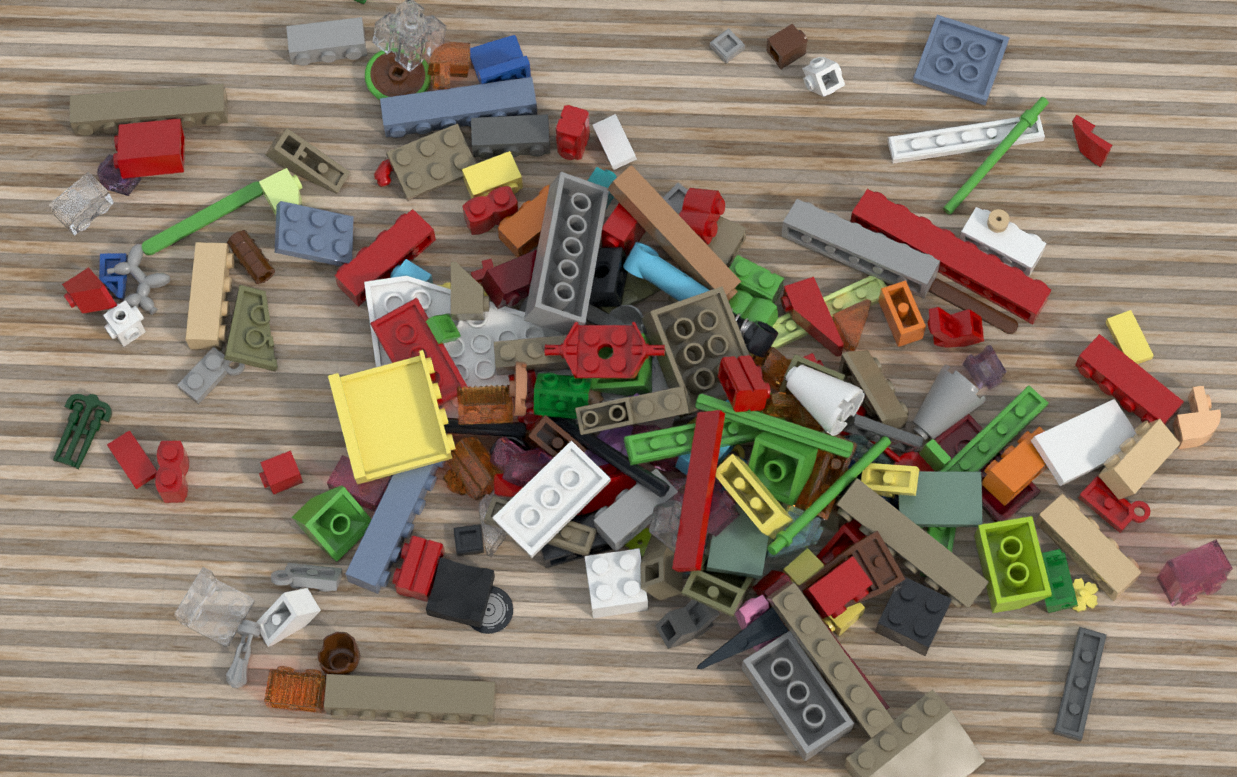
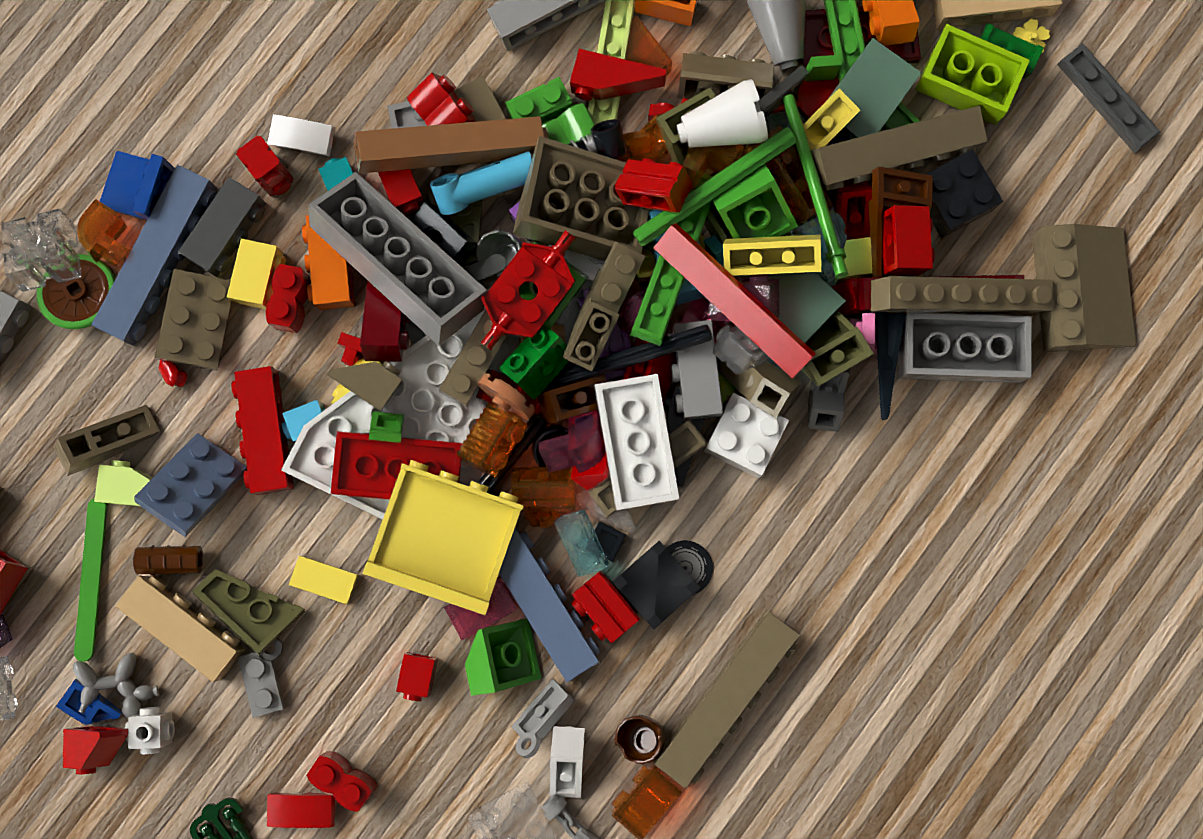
camera: 55 degrees left, 15 degrees up
(307, 367) = (323, 579): none -> light yellow tile
(454, 520) = (581, 543): none -> clear light blue plate

